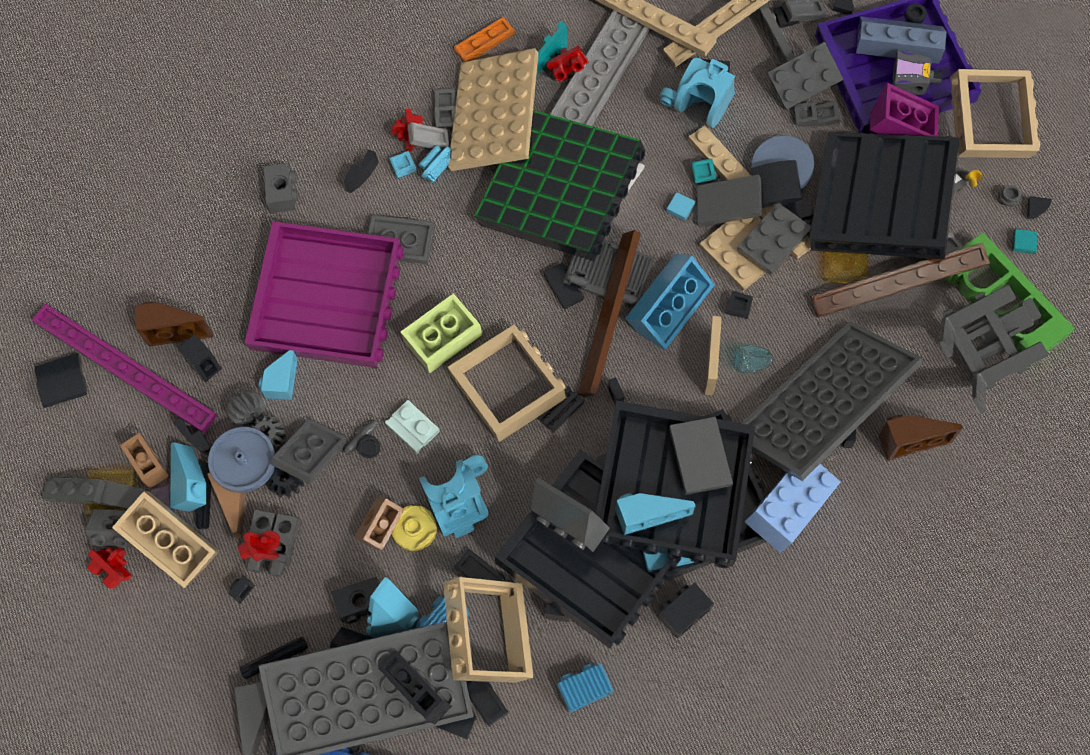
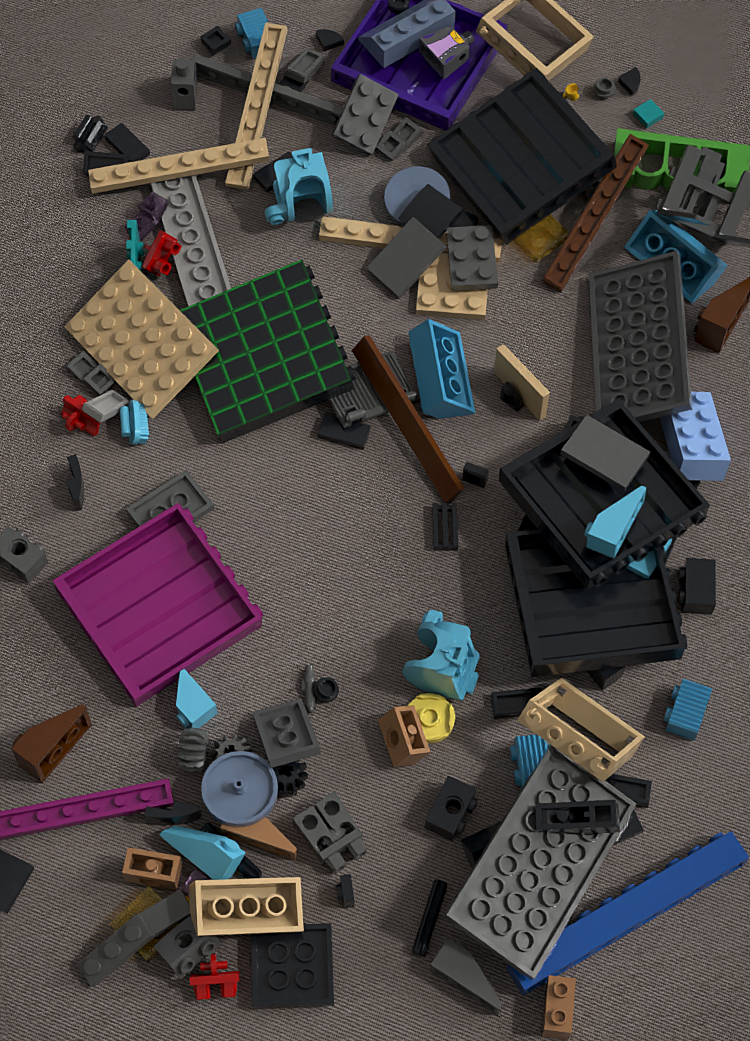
camera: 50 degrees left, 5 degrees down
(160, 607) = (293, 968): none -> black plate
(199, 358) = (108, 745): black brick -> none
(260, 545) = (337, 831): red hips -> none
(390, 611) = (492, 787): medium azure wedge -> none
(403, 164) = (103, 448): medium azure tile -> none
(412, 426) = (342, 643): light aqua plate -> none
(441, 333) = (291, 549): yellowish green brick -> none
(484, 40) = (62, 293): orange tile -> none
(527, 414) = (377, 575): tan window -> none
(567, 516) = (561, 579): dark grey slope -> none
(595, 28) = (150, 213): none -> clear purple slope
(680, 206) = (370, 294): medium azure tile -> none
(699, 360) = (511, 397): none -> black tile
(703, 171) = (359, 252): teal tile -> none
(739, 305) = (496, 330): black plate -> none
(751, 359) = (548, 362): clear light blue rock -> none
(903, 113) = (472, 85): magenta slope -> none
(936, 379) = (662, 235): none -> dark azure slope

